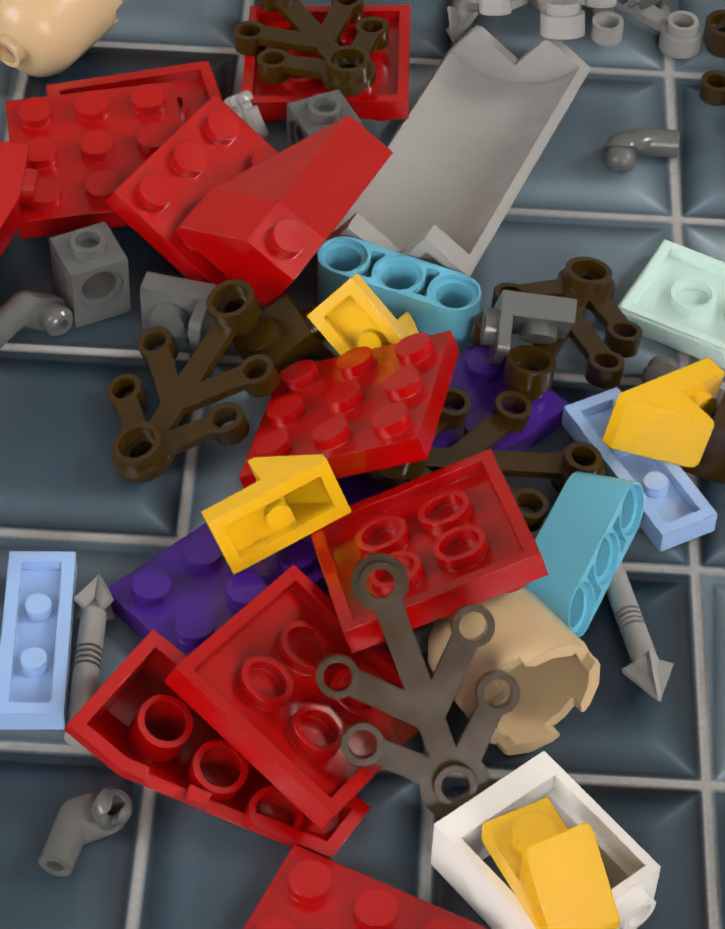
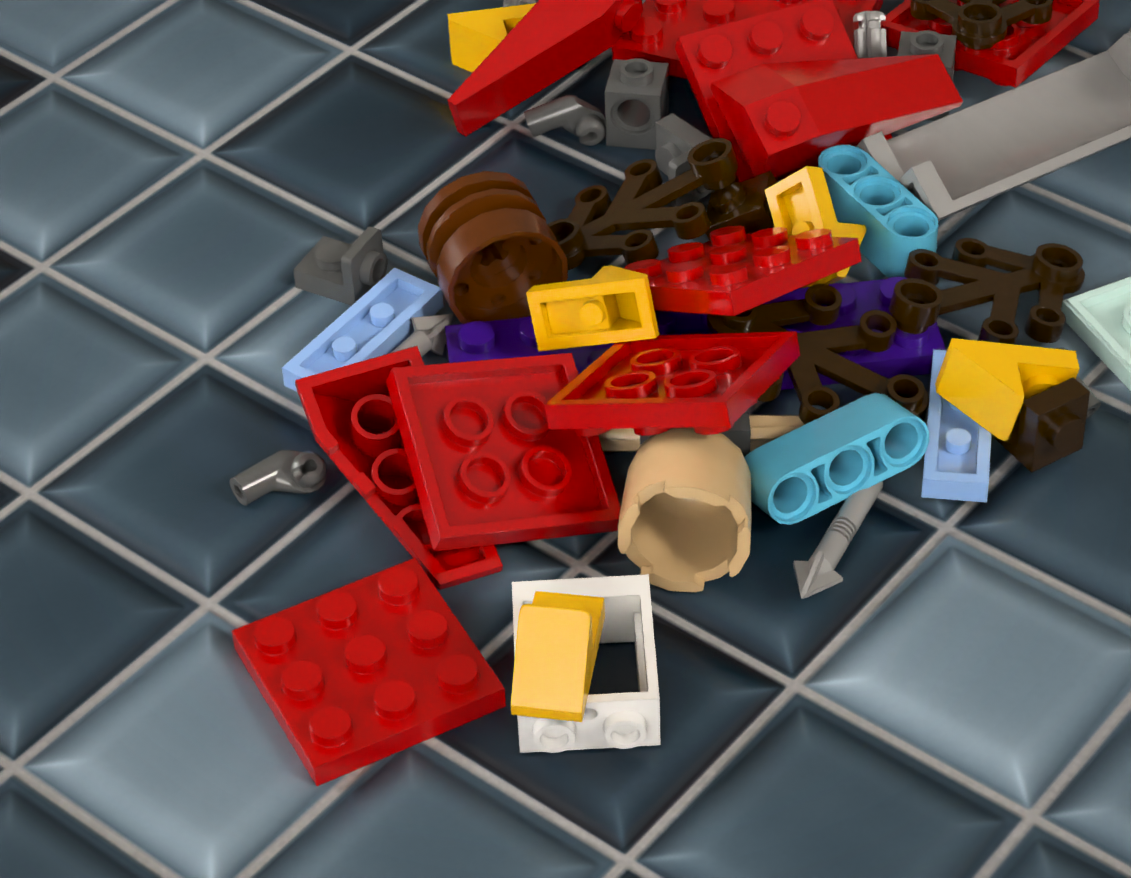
camera: 40 degrees right, 5 degrees down
(107, 491) = (489, 246): none -> reddish brown wheel
(424, 699) = (570, 479): dark brown plant -> none
(534, 316) = (949, 260): dark grey bracket -> none

